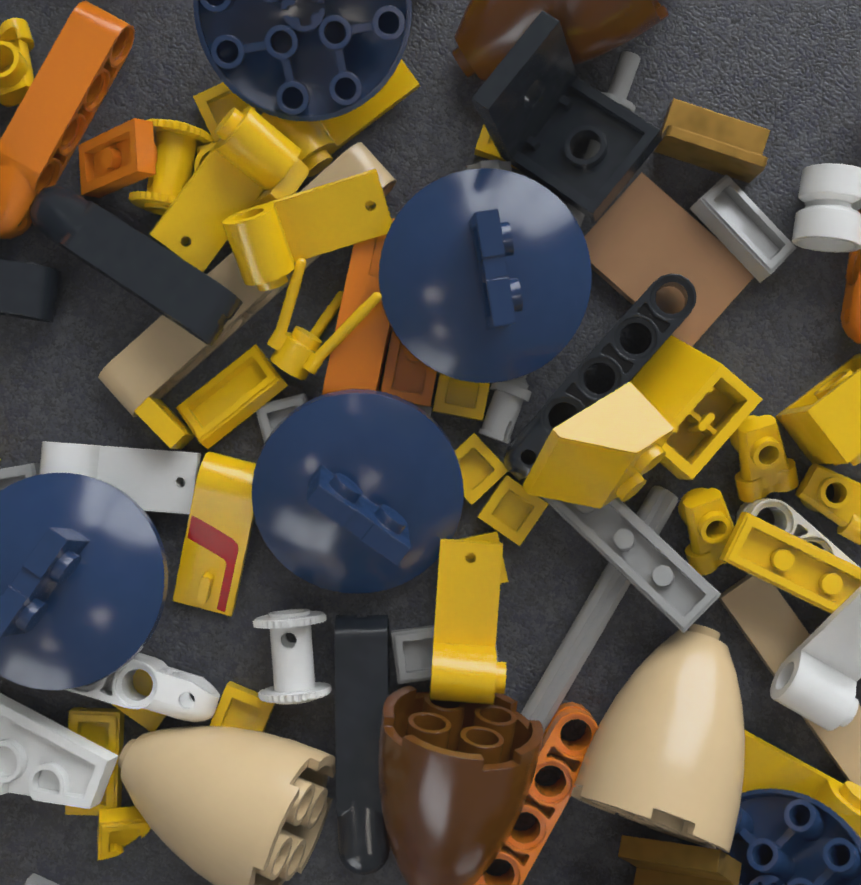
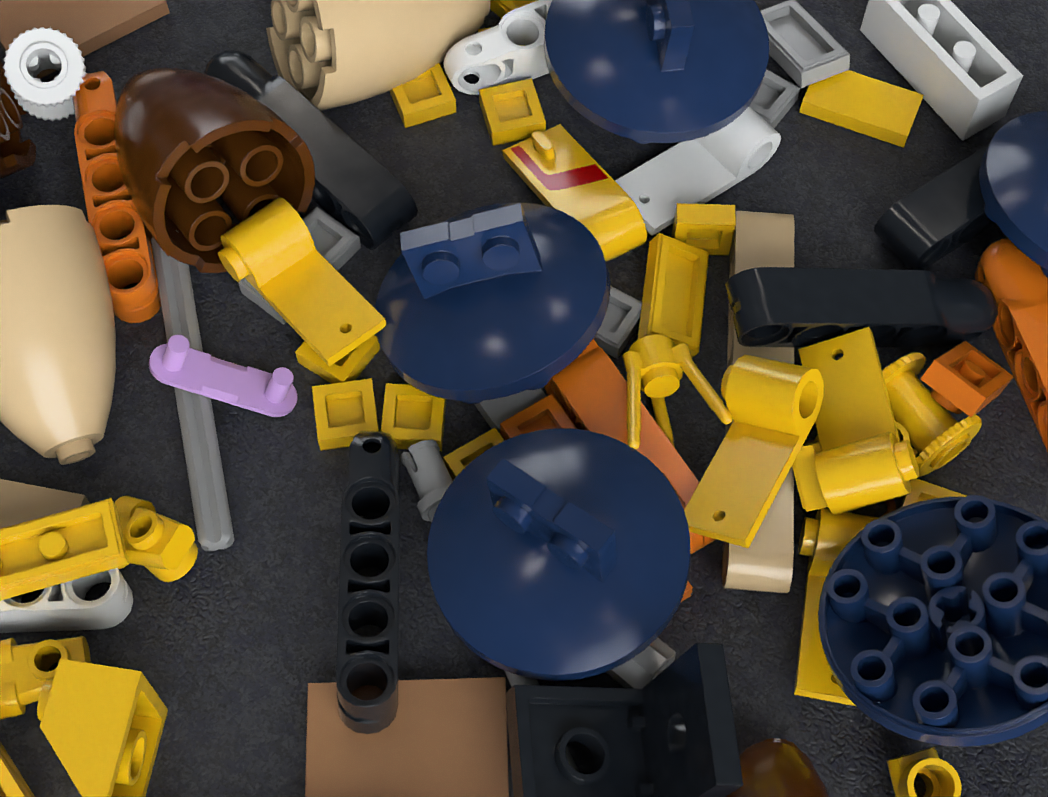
camera: 130 degrees right, 25 degrees down
(194, 641) = (511, 111): none -> yellow tile
(292, 661) = (404, 137): white hose -> none
(572, 602) = (222, 380): none -> lavender piece
(601, 451) = (309, 489): yellow slope -> none
(642, 559) = (218, 460): light grey tile -> none
(697, 399) = (266, 614): yellow slope -> none
(762, 459) = (149, 643): yellow plate -> none

